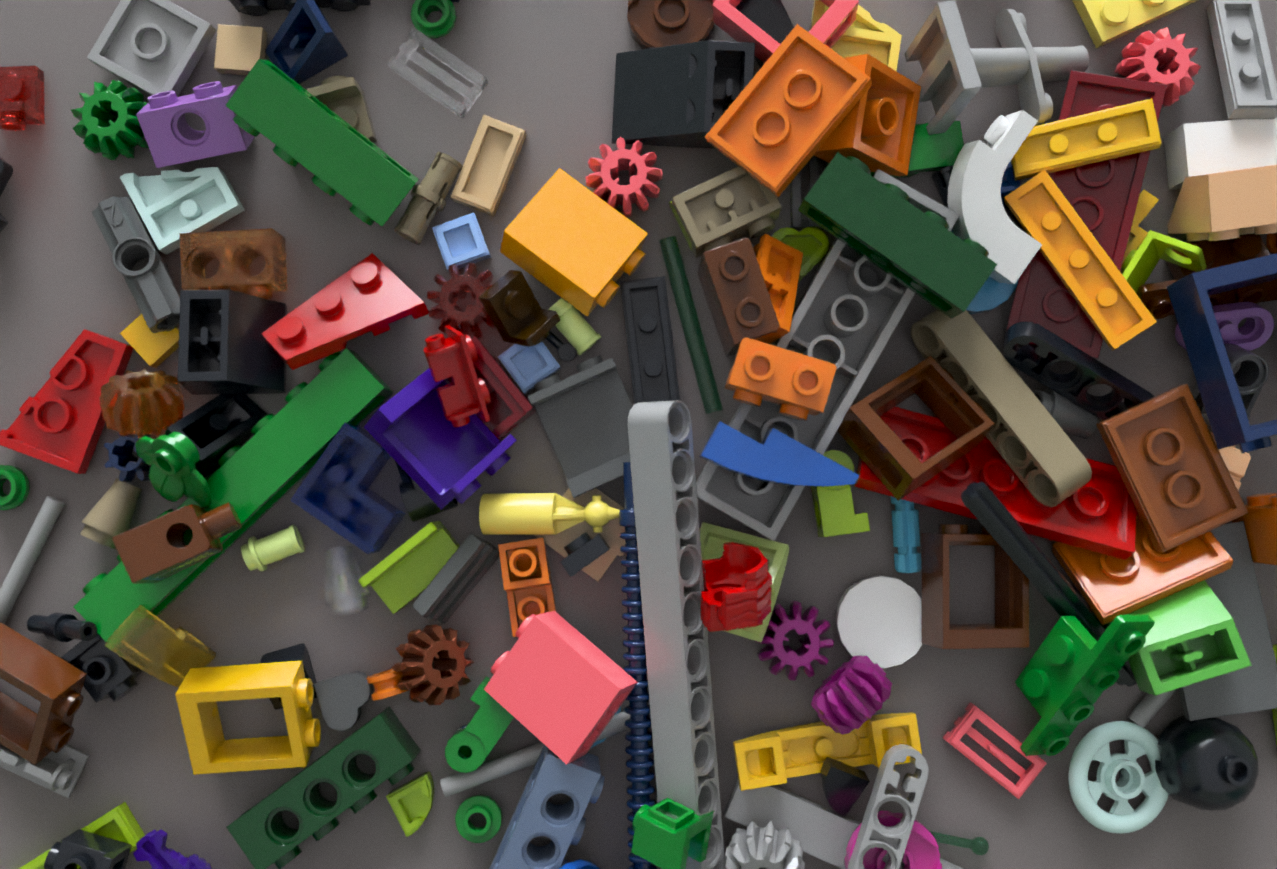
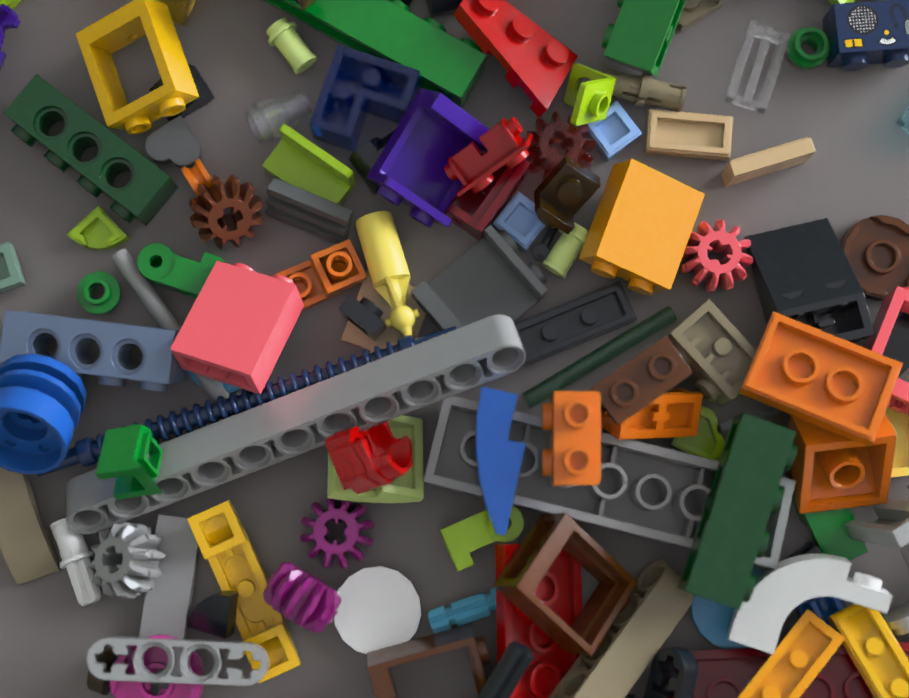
camera: 70 degrees right, 5 degrees down
(425, 250) = (592, 98): none -> lime bracket
(541, 93) = (768, 161): none -> tan tile

